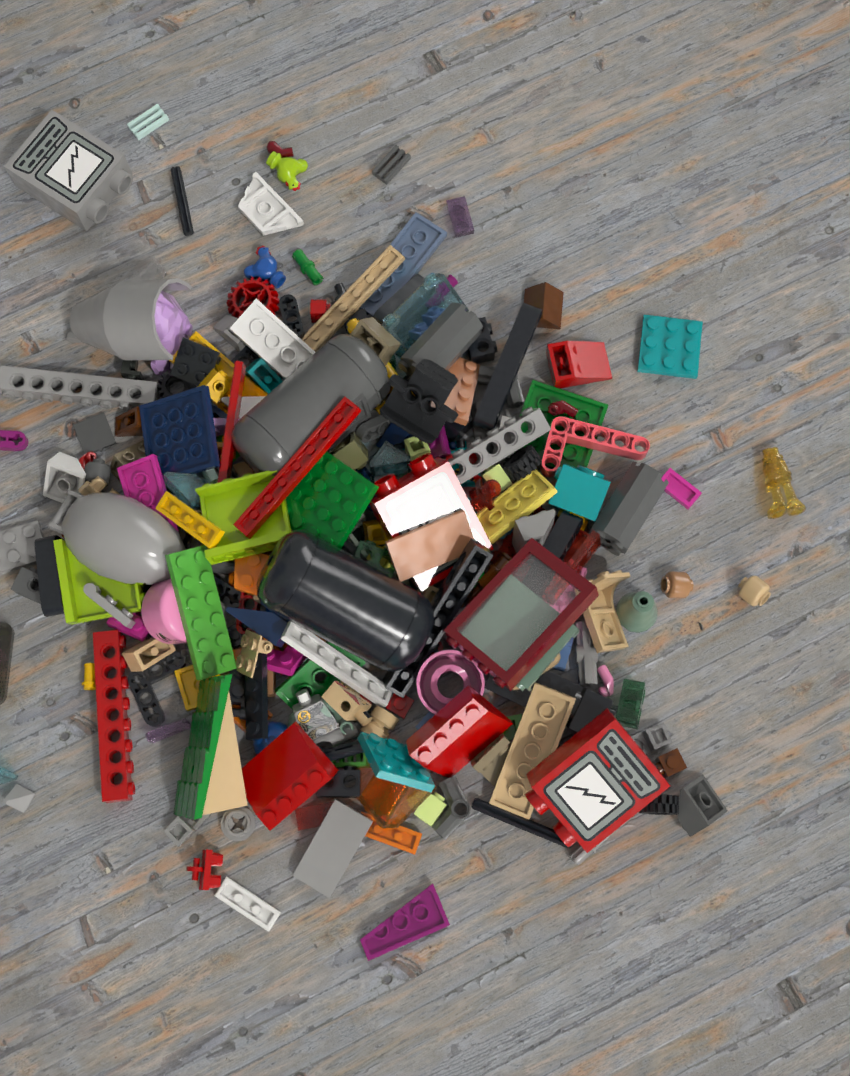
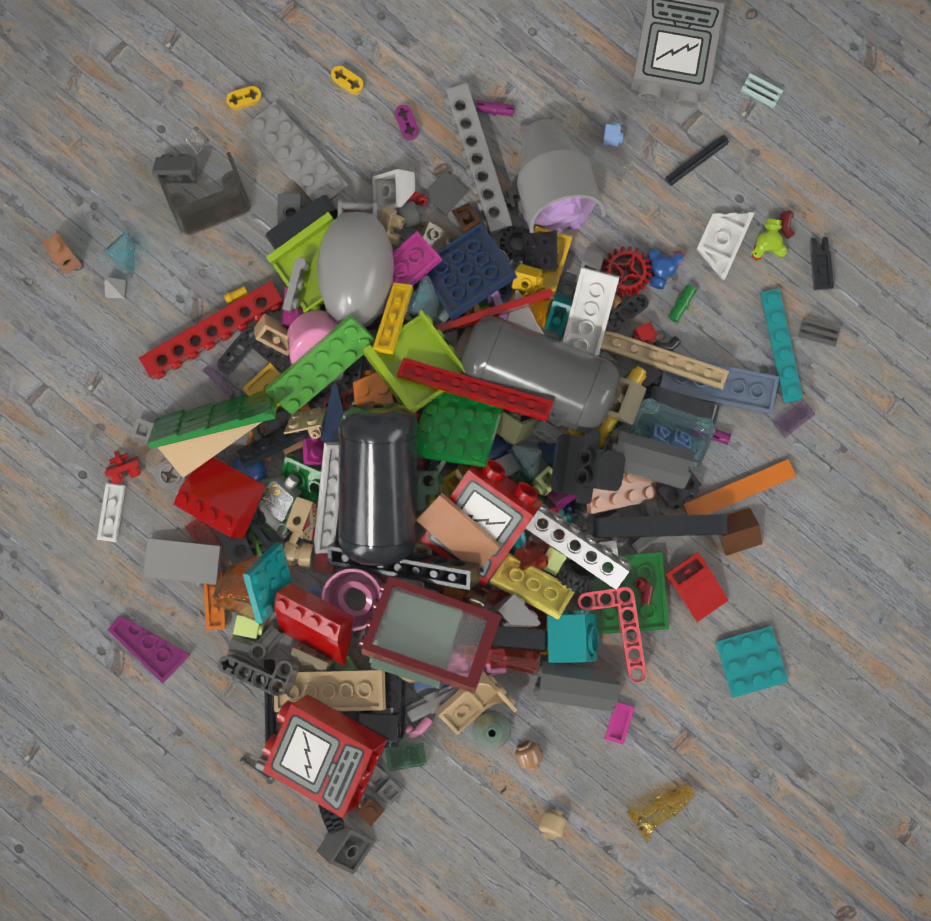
camera: 65 degrees right, 10 degrees up
(38, 354) = (494, 108): none -> magenta pin
(119, 261) = (612, 135): none -> light blue plate
(331, 137) = (821, 265): none -> black hinge
(387, 201) = (781, 346): none -> teal plate
(480, 818) = (256, 672): none -> dark grey beam
(504, 289) = (740, 489): none -> orange tile
(566, 874) = (269, 780): none -> dark grey hinge

